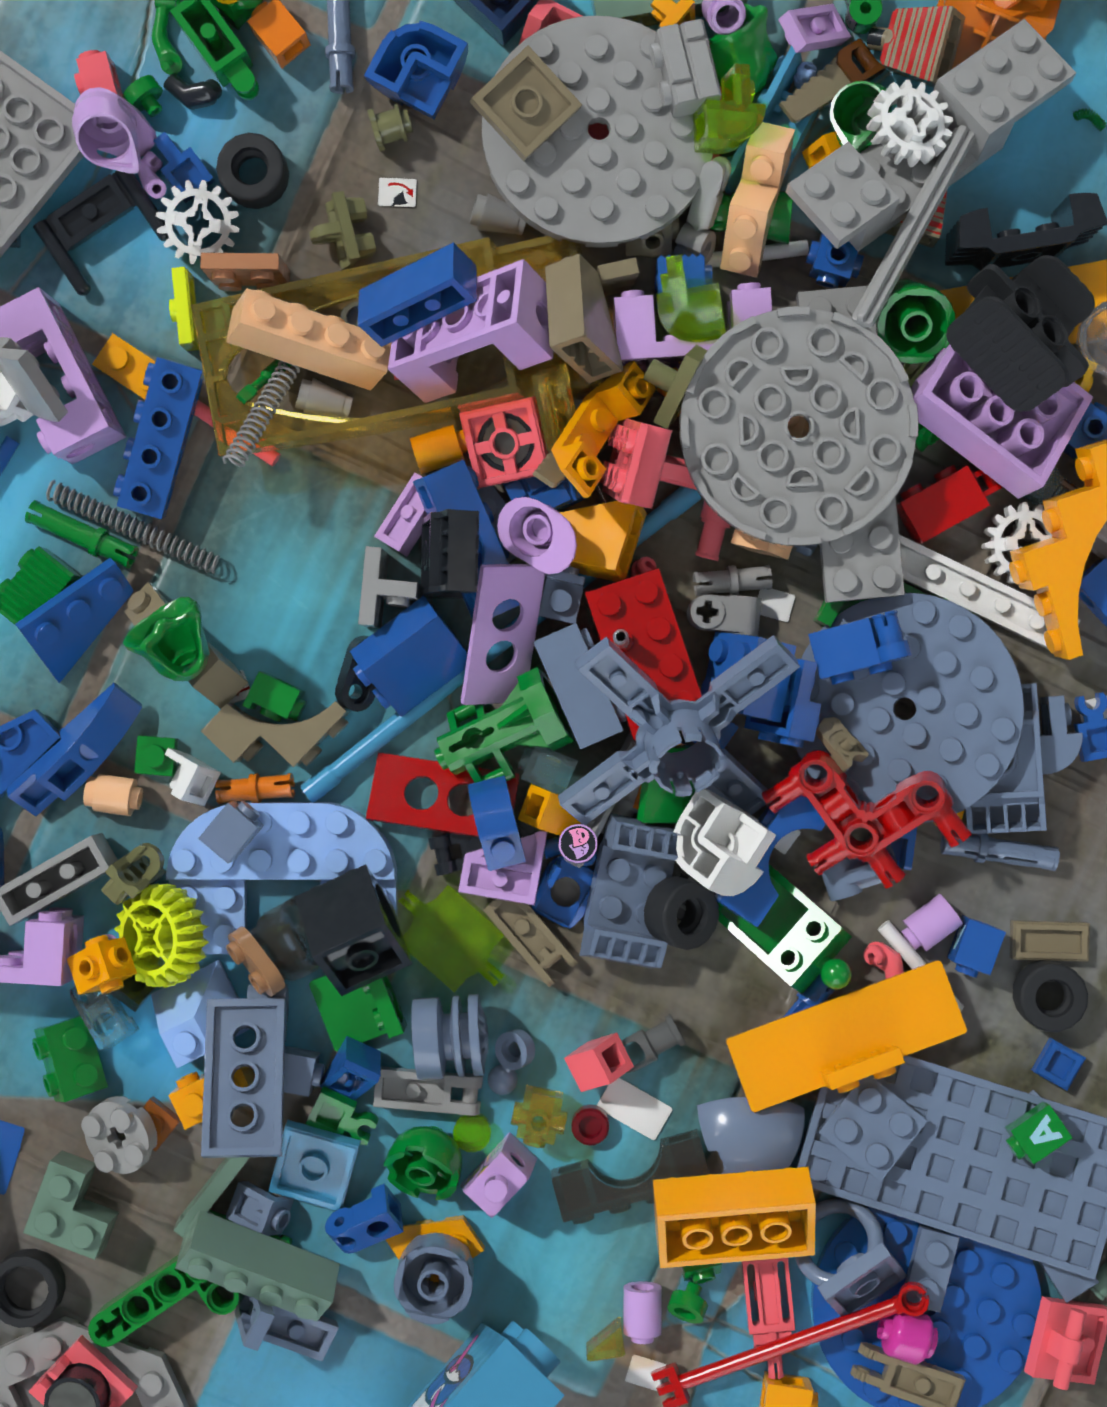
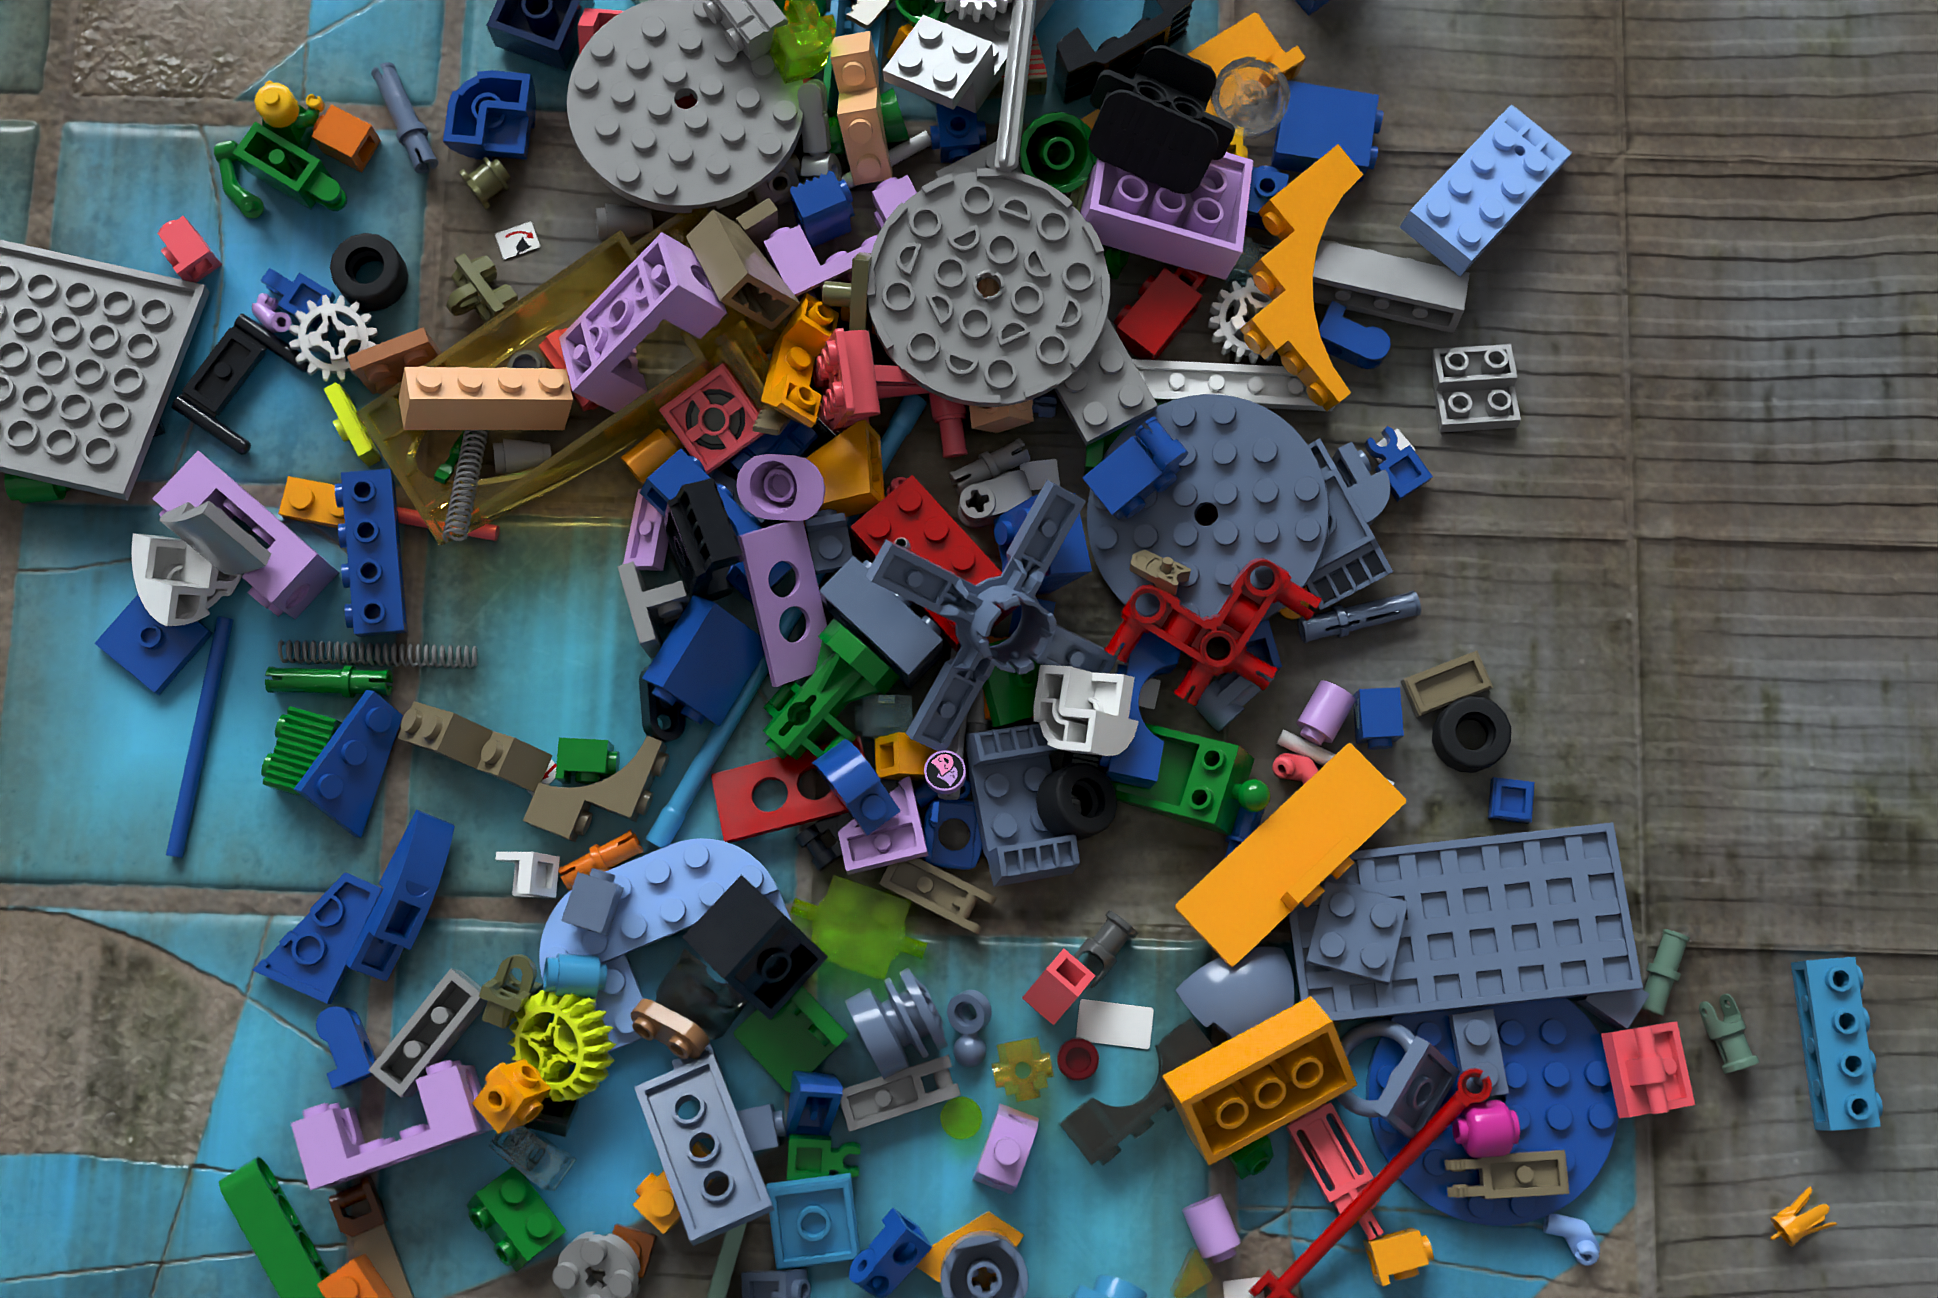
camera: 25 degrees left, 10 degrees down
(112, 126) = (216, 283): lavender helmet -> none
(113, 794) = (457, 925): light nougat brick -> none
(144, 95) = (236, 244): green tile -> none
(151, 755) = (486, 873): green plate -> none
(172, 640) = (460, 732): green piece -> none
(183, 1011) = (616, 1117): light blue slope -> none
(193, 885) = (574, 974): none -> dark azure brick
(194, 95) = (284, 227): black arm -> none
(417, 295) = (573, 311): blue brick -> none
(424, 1162) = (925, 1166): green cylinder -> none
(525, 103) = (607, 98): dark tan plate -> none
(688, 1304) = (1255, 1200): green tile -> none
(689, 312) = (840, 226): clear neon green brick -> none
(799, 714) = (1107, 559): blue plate -> none
(1036, 1133) = (1519, 866): green brick -> none

